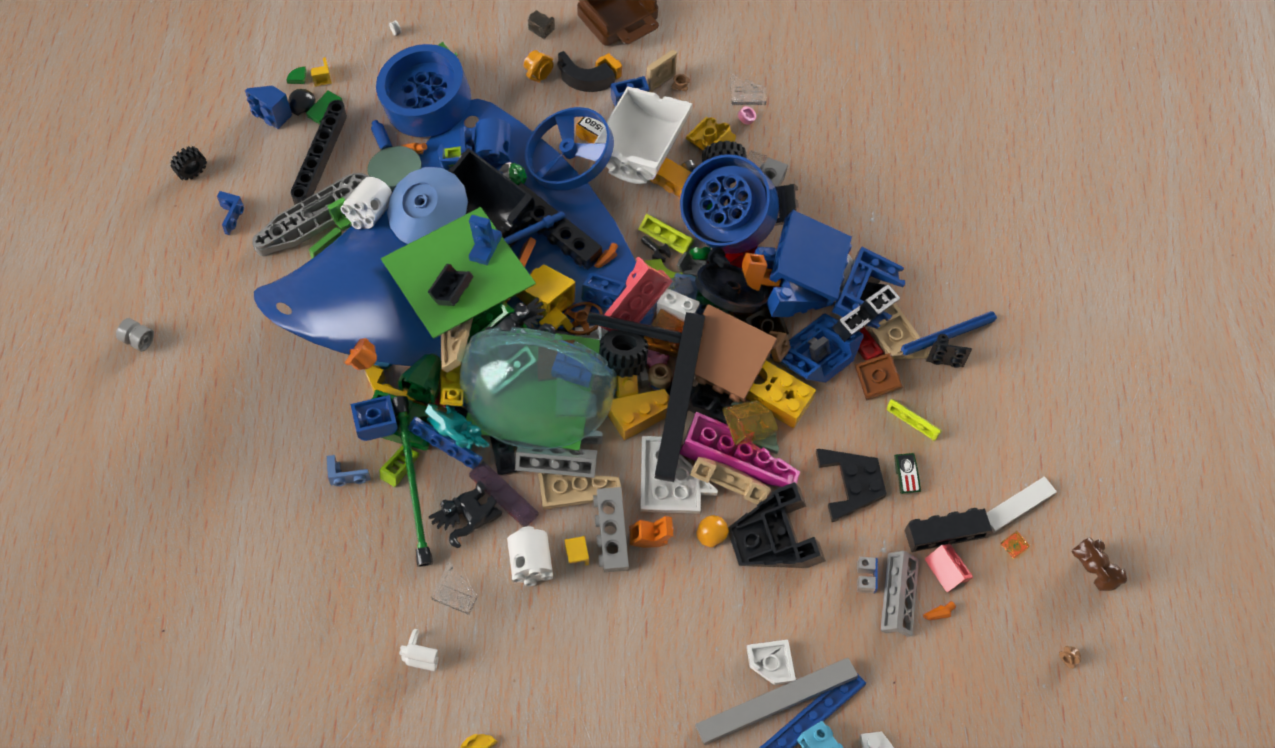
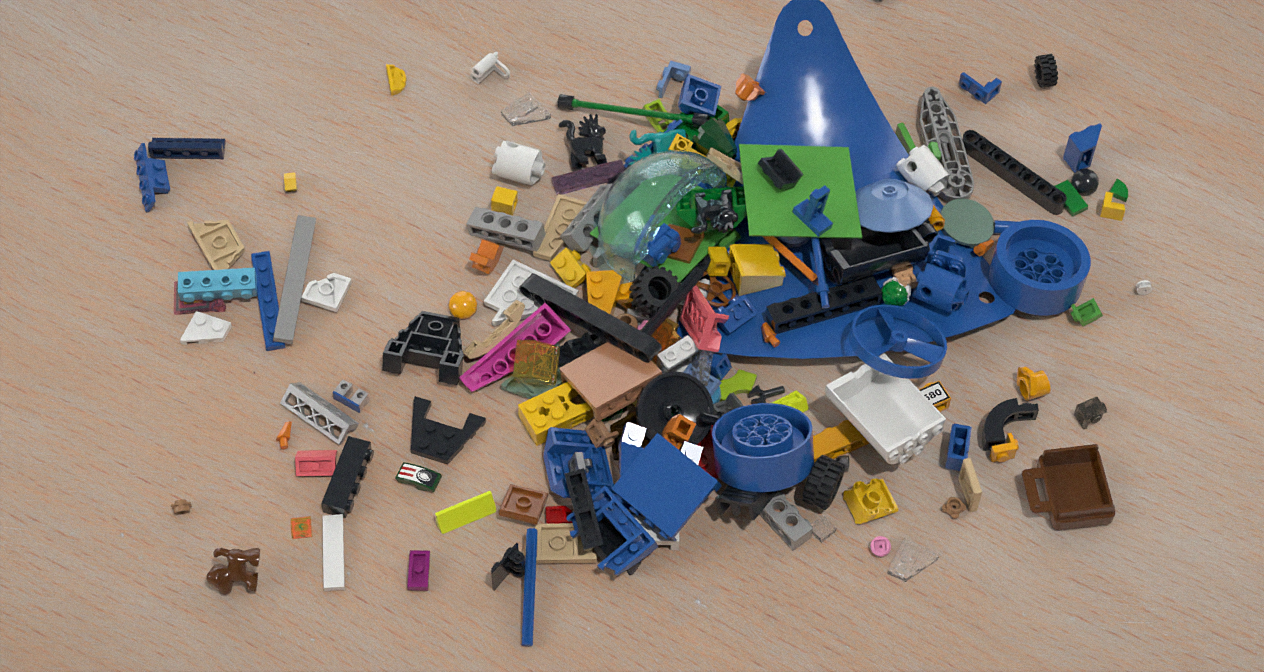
camera: 120 degrees right, 5 degrees down
(619, 455) = (570, 267): none -> yellow bracket
(990, 426) = (418, 570): none -> magenta plate

